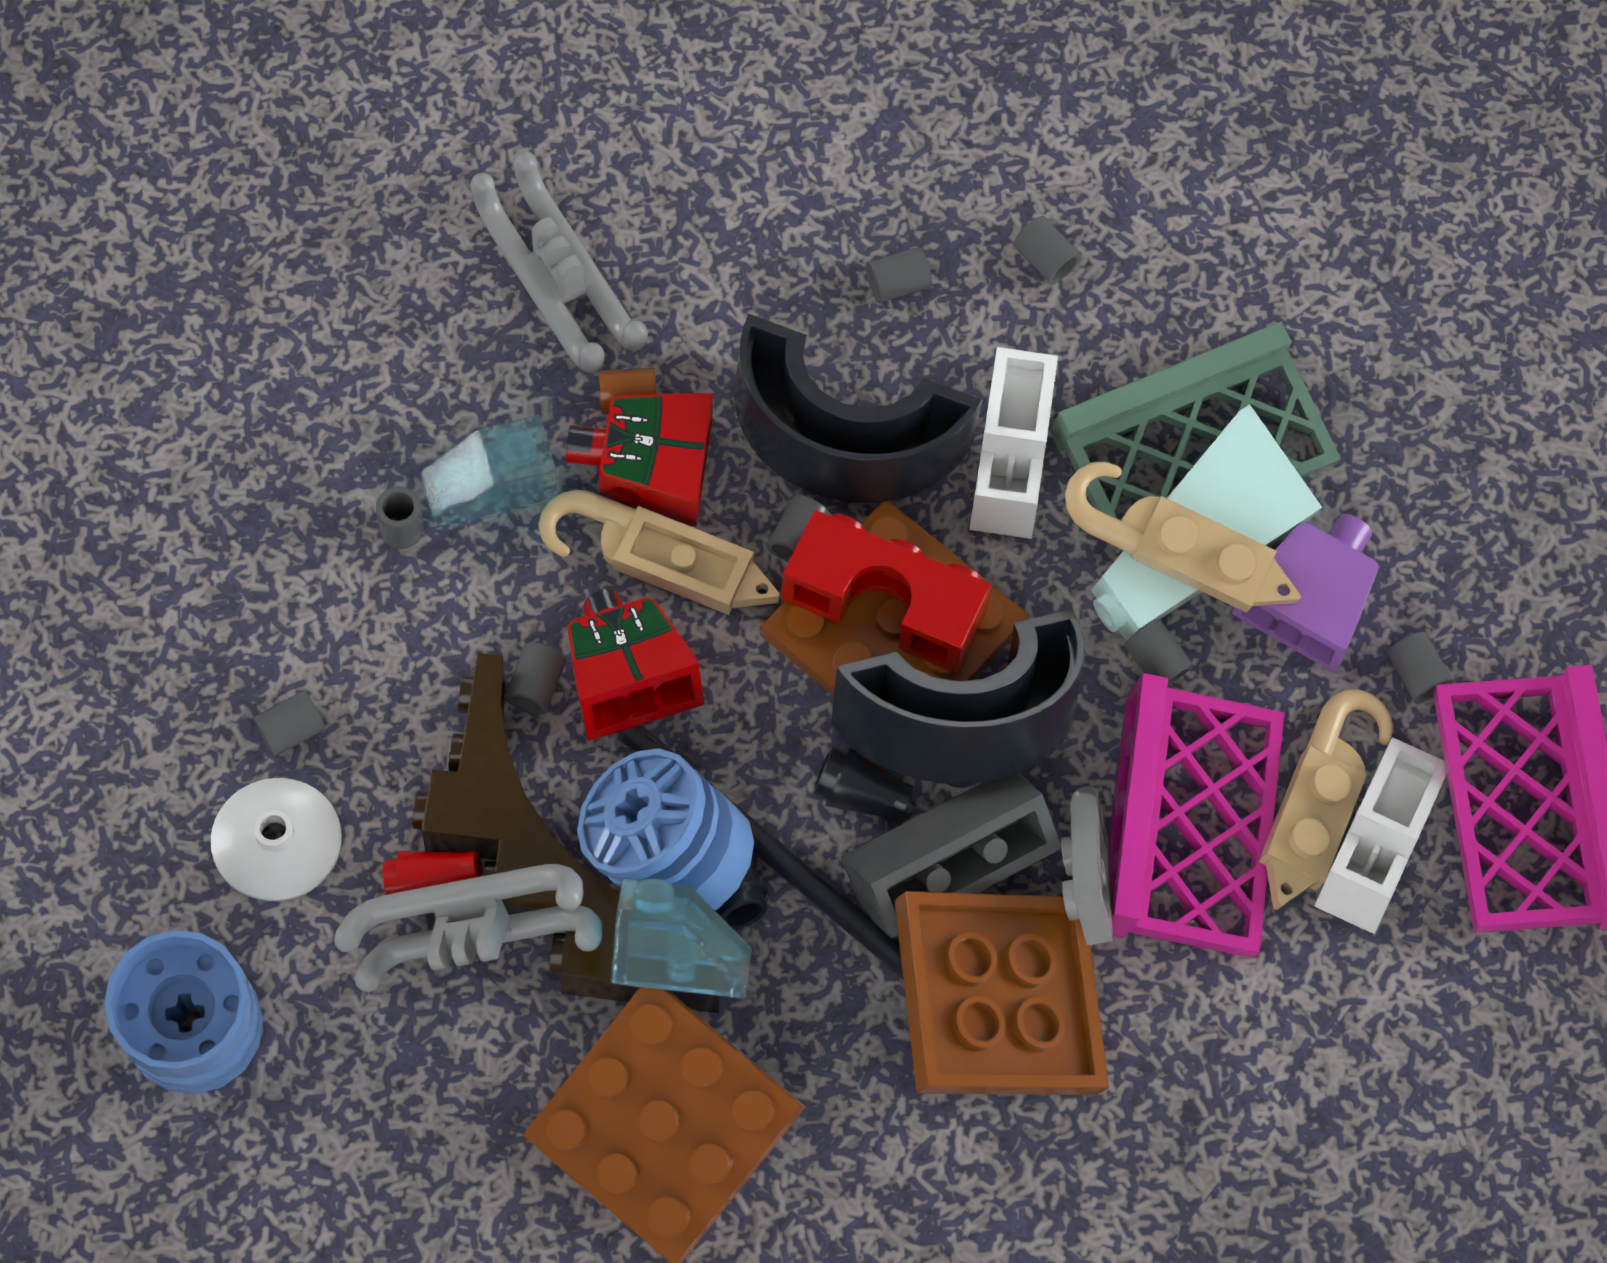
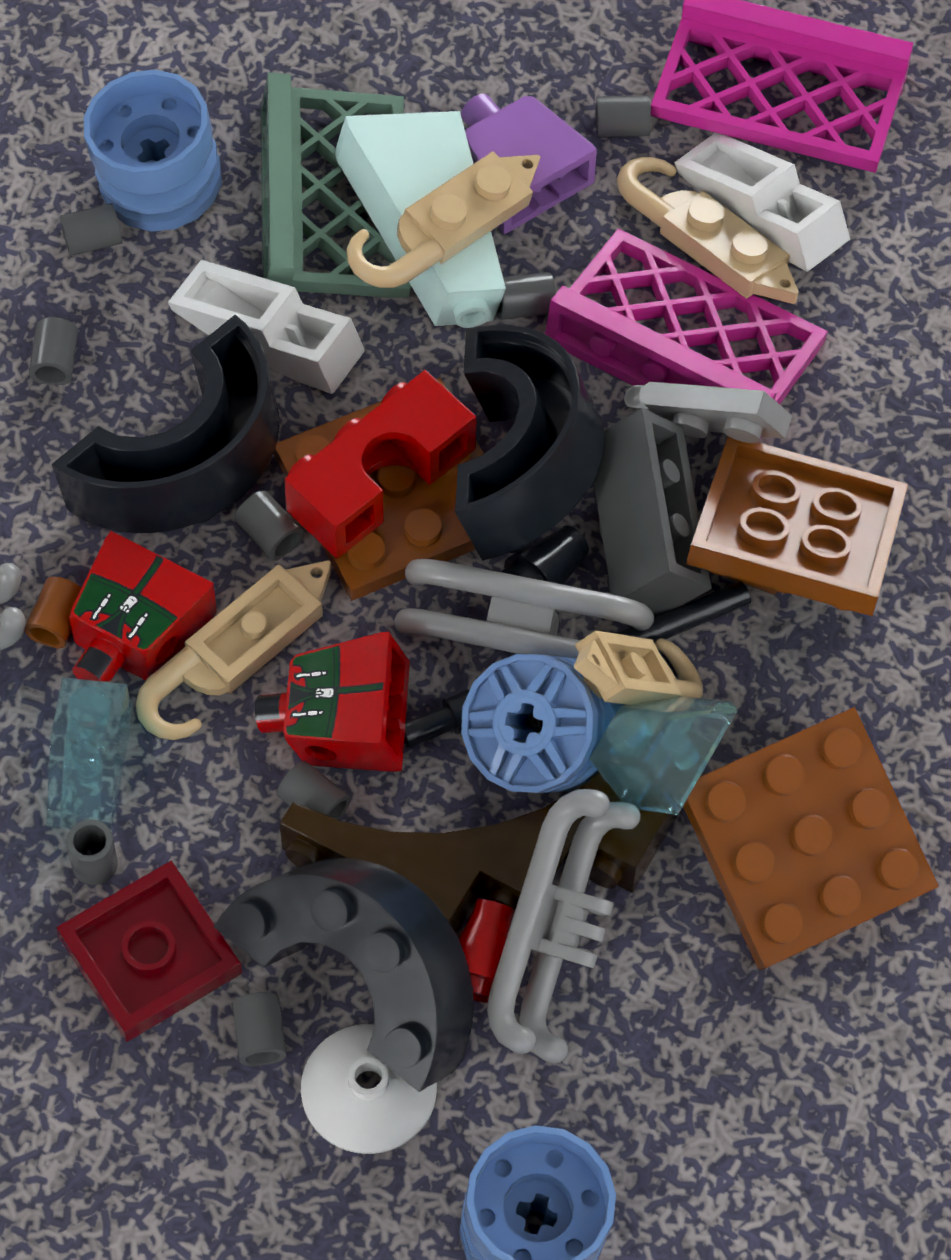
camera: 65 degrees left, 5 degrees down
(326, 603) = (149, 950): none -> dark red plate
(386, 788) = (390, 936): none -> black brick
(745, 892) = (633, 671): none -> tan plate
(783, 782) = (520, 610): none -> light grey piece
(1142, 259) = (153, 150): none -> medium blue wheel

